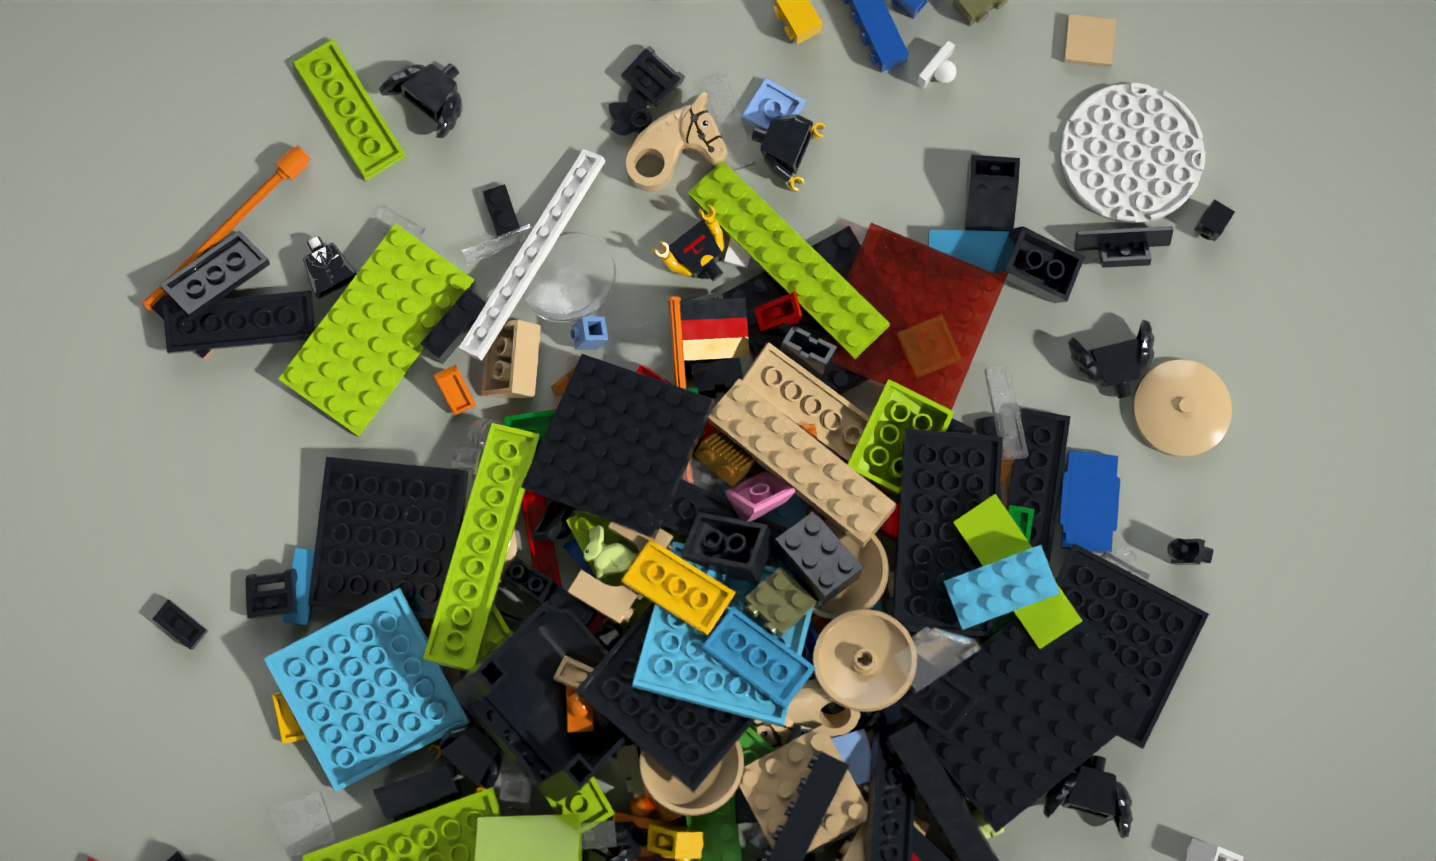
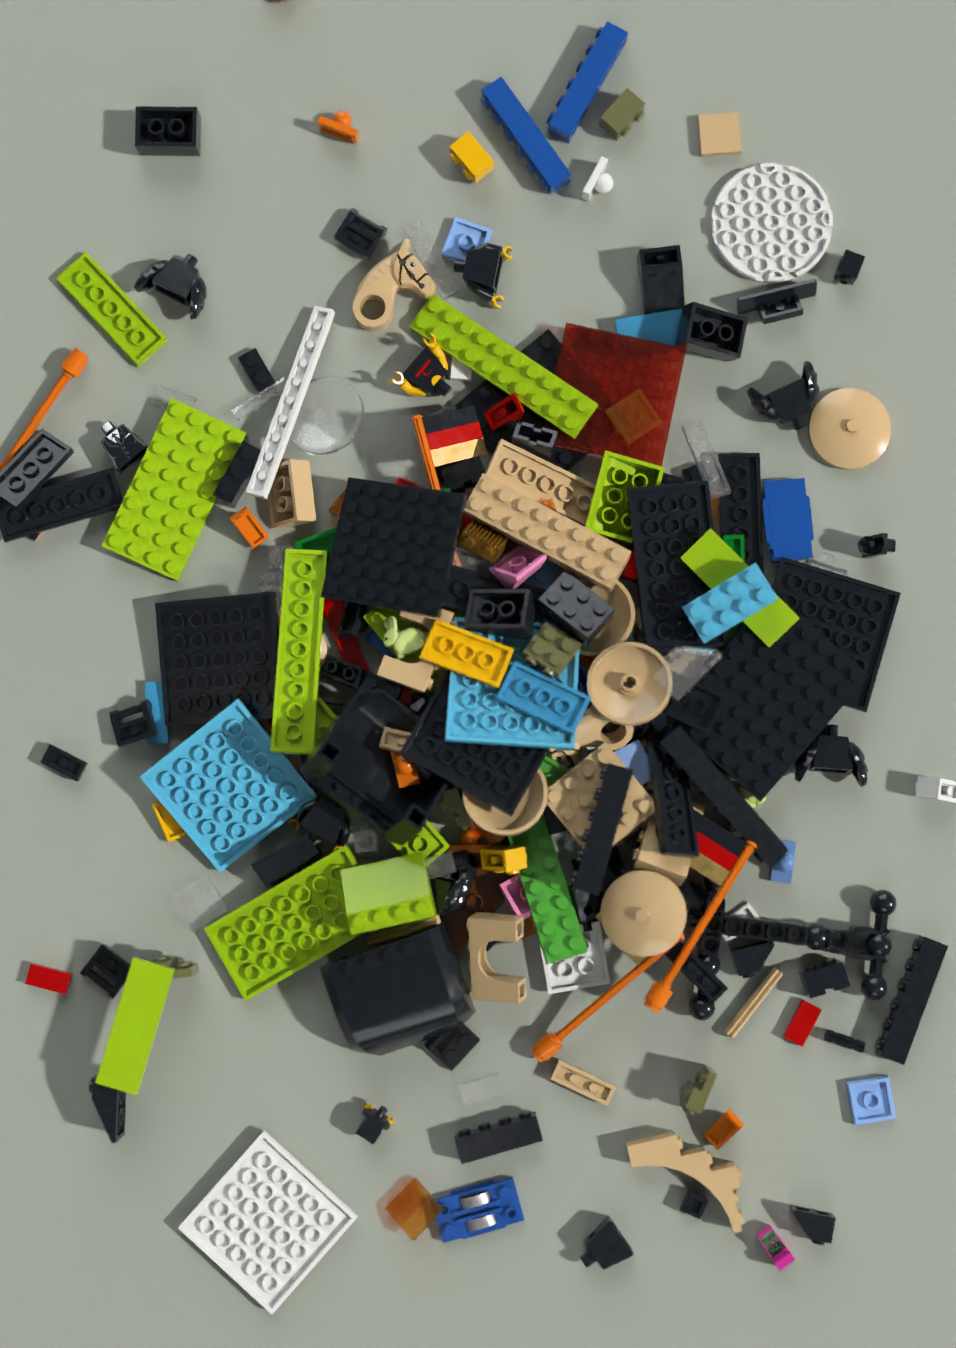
camera: 10 degrees left, 5 degrees up
(589, 333) = (351, 459): medium blue brick -> none
(628, 113) = (345, 269): black plate -> none

